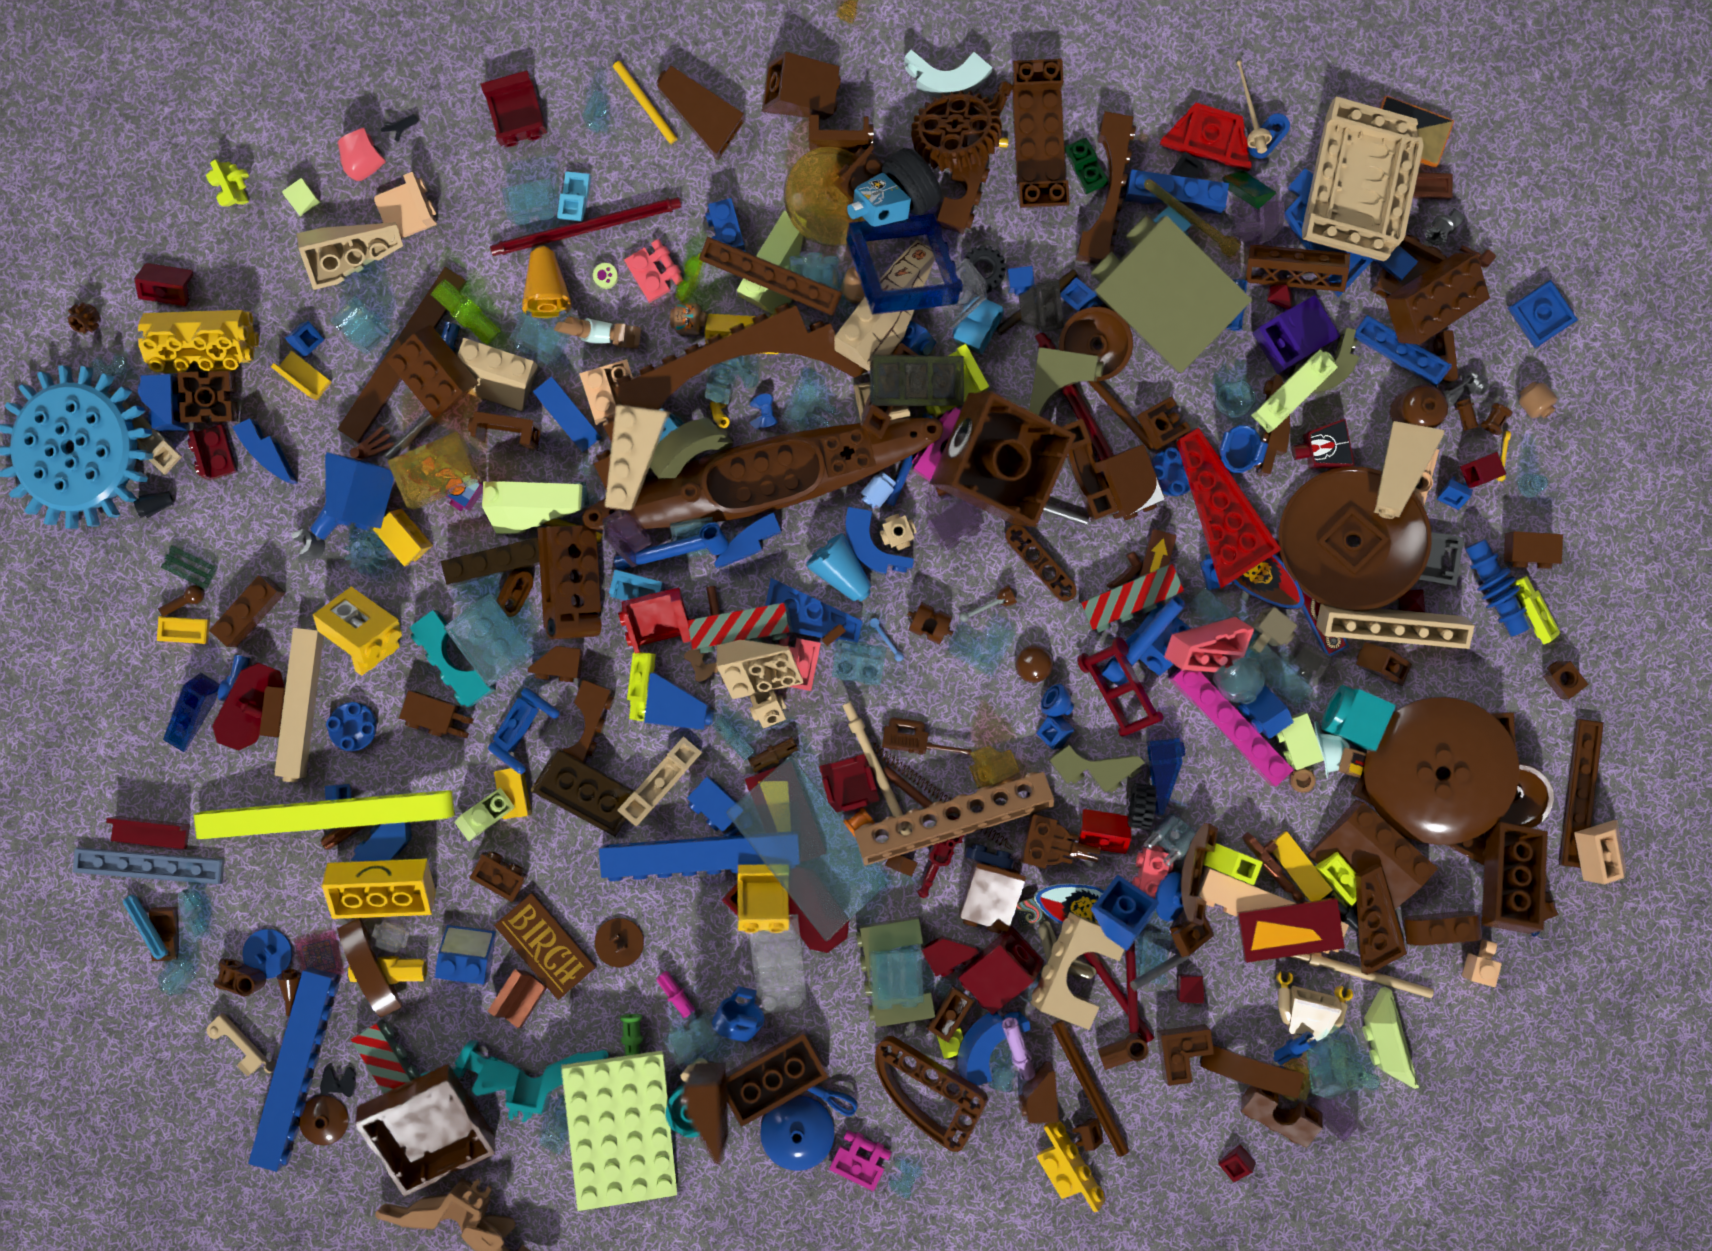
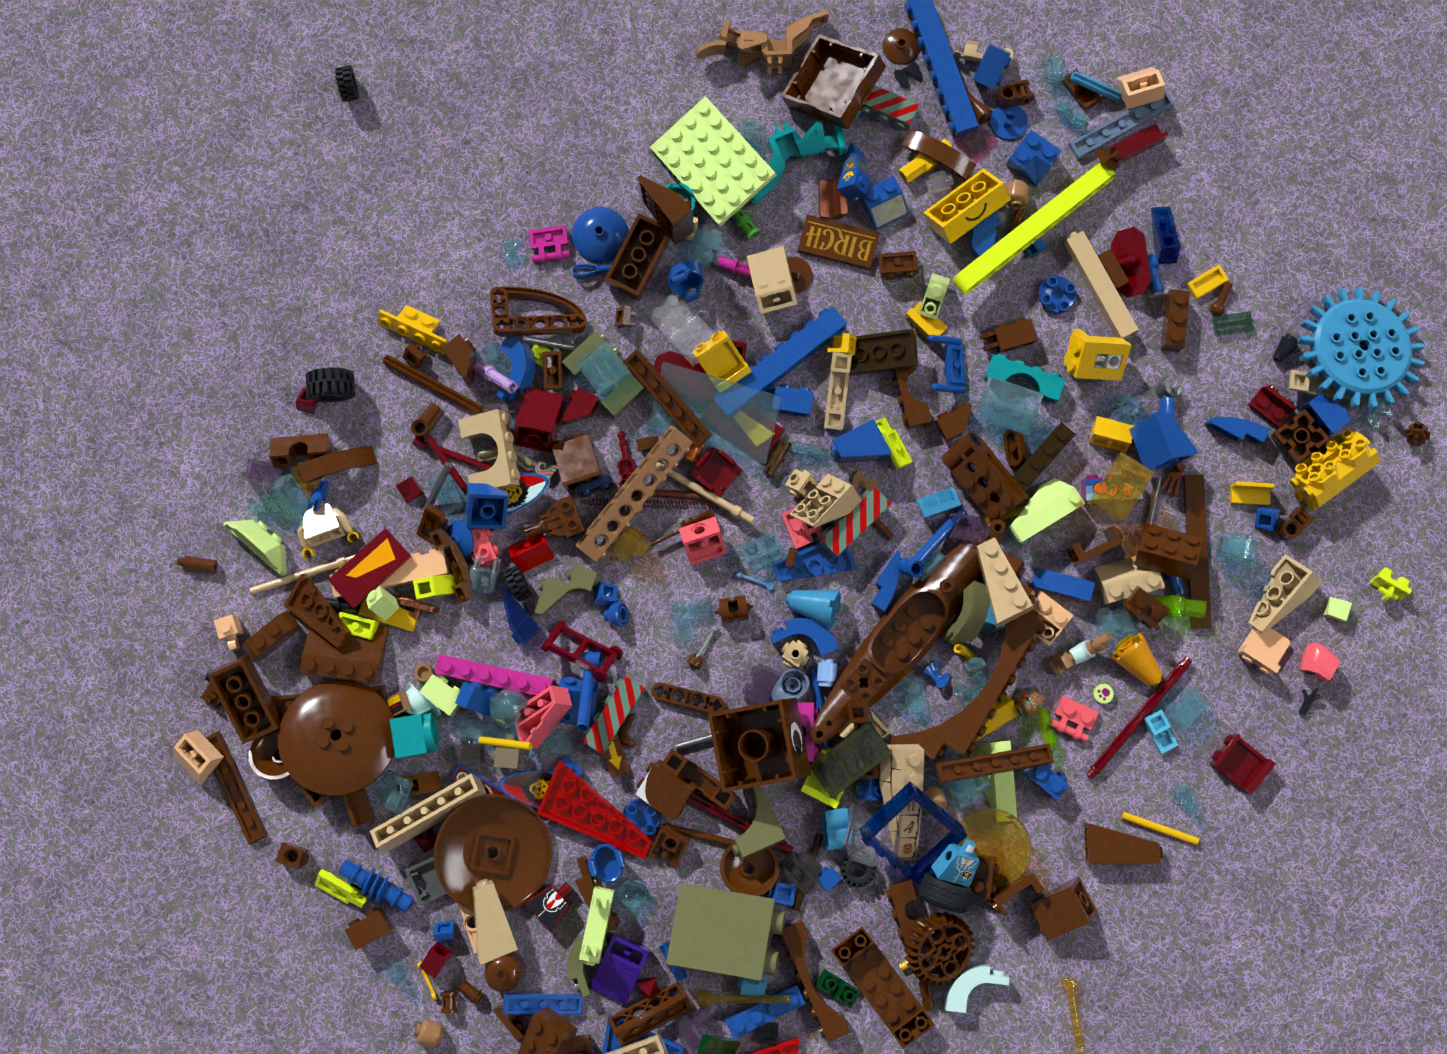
camera: 155 degrees right, 5 degrees down
(96, 891) = (1141, 87): none -> light nougat slope
(163, 284) = (1383, 491): dark red panel -> none
(190, 836) = (1109, 157): none -> reddish brown tile
(241, 1027) = (992, 65): none -> blue brick
(269, 893) = (1033, 158): none -> blue slope
(275, 313) = (1297, 521): none -> reddish brown piece
(313, 865) = (1018, 193): none -> medium nougat head
(476, 1007) = (854, 175): none -> blue slope
(498, 329) = (1146, 607): none -> reddish brown bracket
(618, 827) = (844, 344): none -> yellow panel
(646, 951) = (772, 280): none -> tan slope
(654, 618) = (913, 491): red panel -> none
(834, 1022) = (622, 317): none -> reddish brown tile
(848, 898) = (668, 398): none -> reddish brown tile
(914, 718) = (702, 540): none -> coral brick
(929, 1042) = (548, 343): none -> flat silver bar
(935, 500) = (790, 677): none -> sand blue cap
(1034, 663) = (648, 629): reddish brown hair -> none
(1176, 1048) = (394, 446): reddish brown panel -> none
(1204, 1164) = (330, 384): none -> black tyre
(1267, 643) = (505, 743): none -> yellow bar
(1301, 883) = (382, 603): none -> yellowish green brick
(1422, 668) = (391, 797): none -> clear light blue plate
(1463, 680) = (359, 807): none -> reddish brown panel
(1470, 1061) = (198, 564): none -> reddish brown cylinder
(1477, 386) = (475, 1016): flat silver piece -> none

